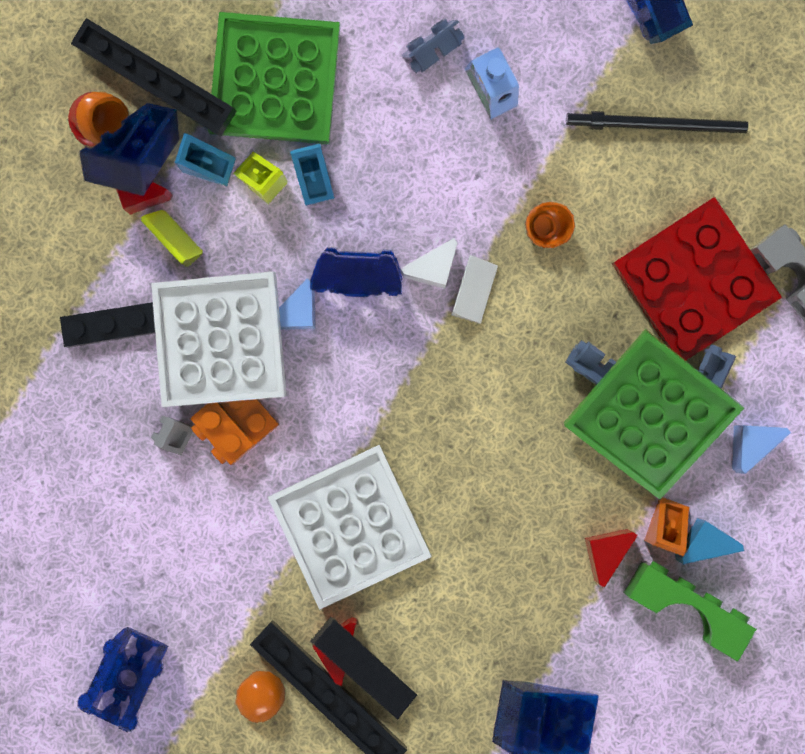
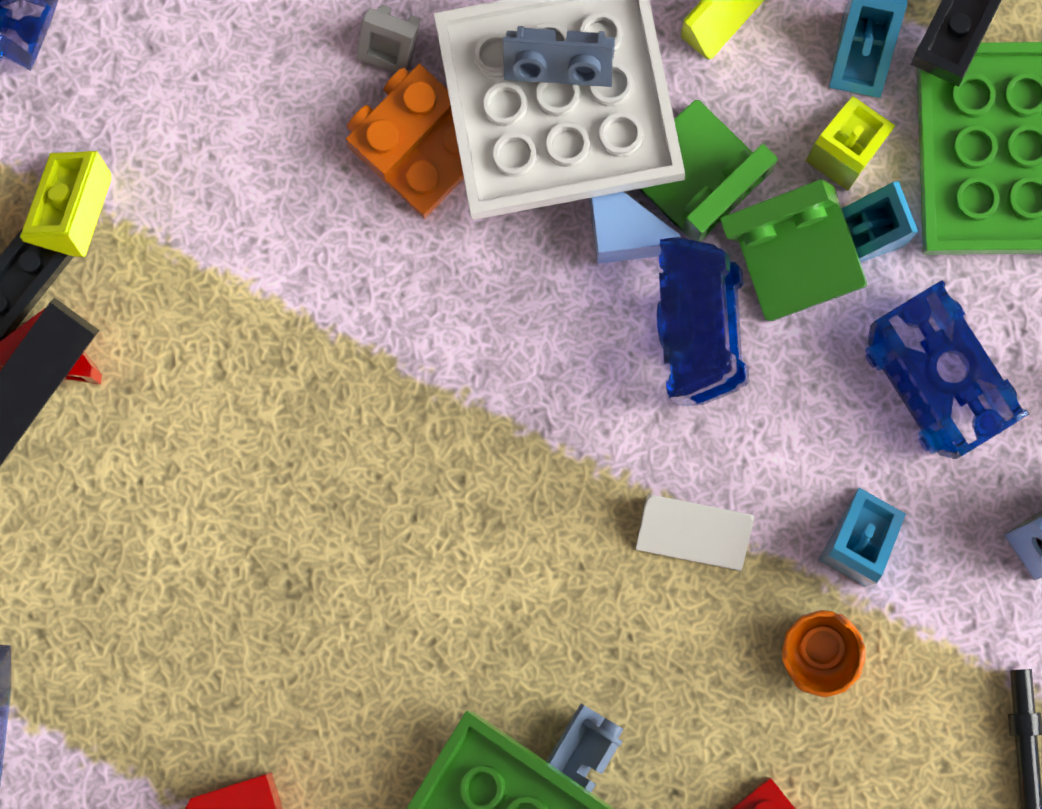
camera: 85 degrees right, 5 degrees down
(195, 350) = (538, 57): none -> sand blue hinge
(251, 629) = (67, 202): none -> neon yellow slope
(270, 253) = (717, 173): none -> bright green bracket
(322, 213) = (797, 249): none -> bright green bracket
(349, 527) = (257, 354): white plate -> none
(406, 153) = (921, 386): none -> clear blue piece
(432, 267) = (726, 454): white slope -> none
(487, 195) = (863, 538): none -> dark azure slope

